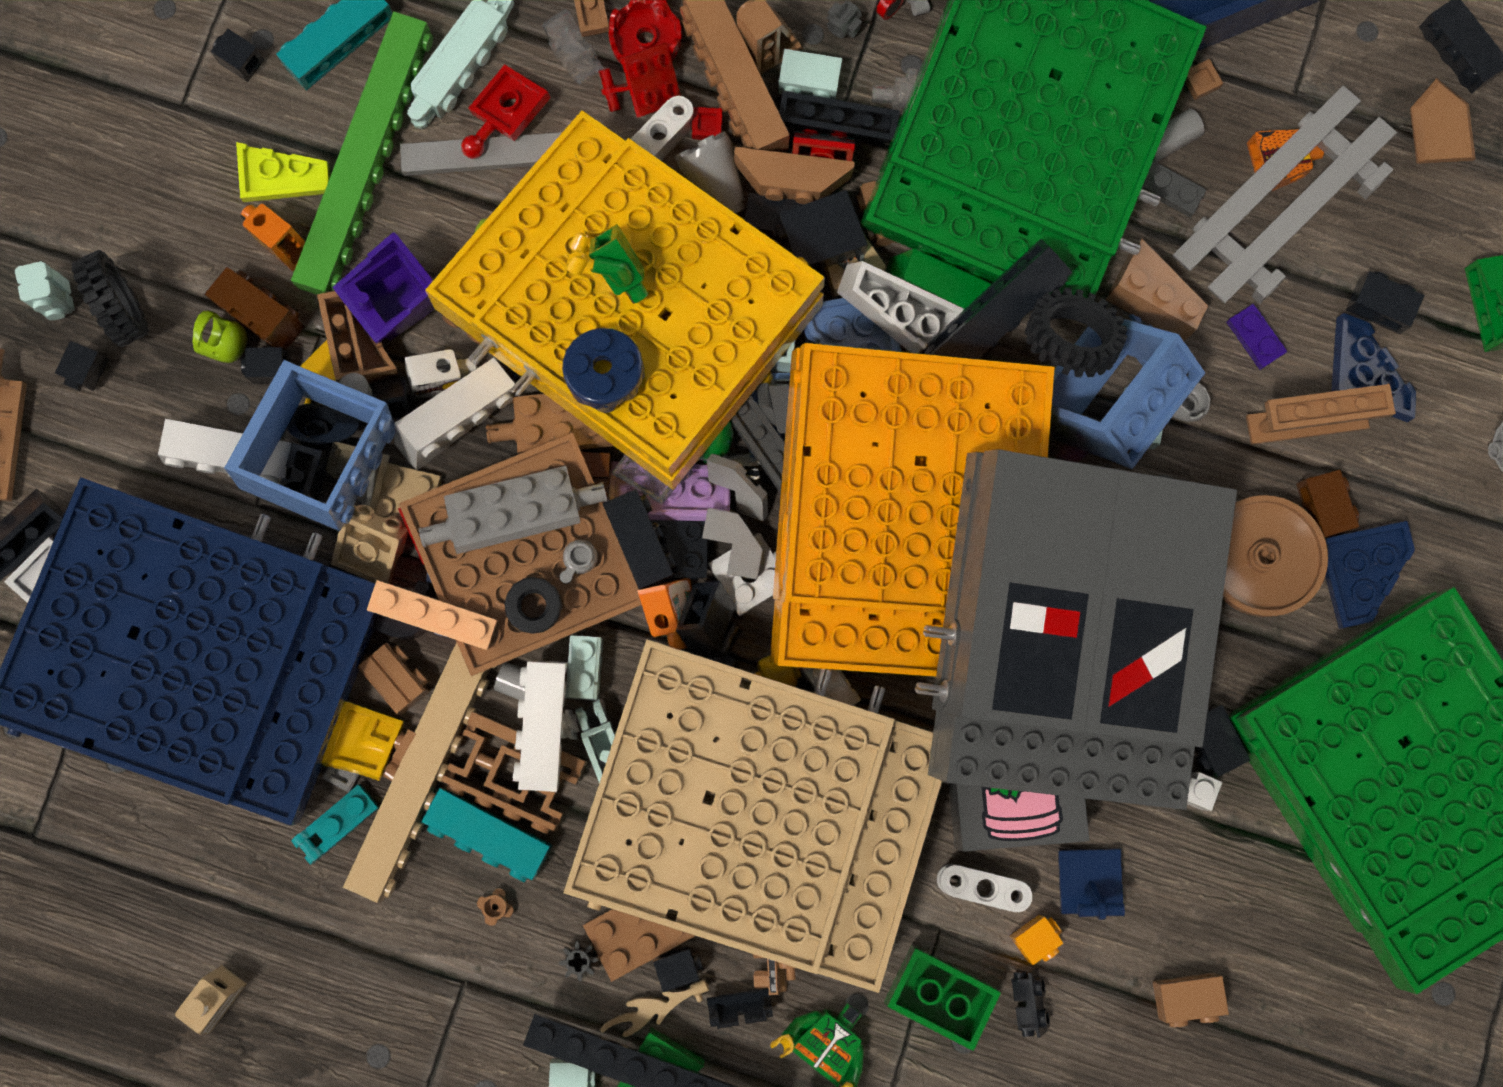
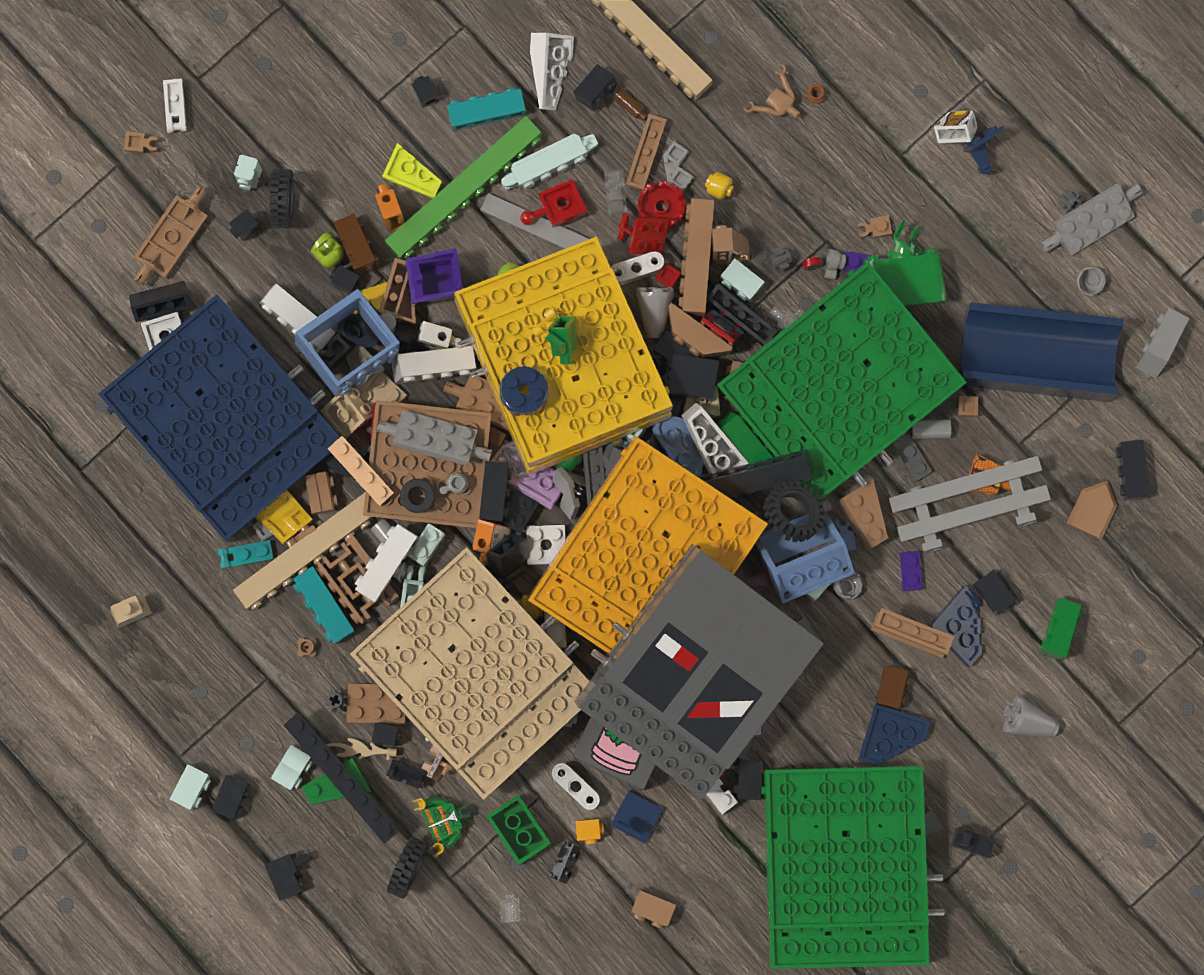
camera: 35 degrees right, 0 degrees up
(745, 549) = (549, 514): light grey tile -> none
(1273, 557) = (837, 695): medium nougat dish -> none

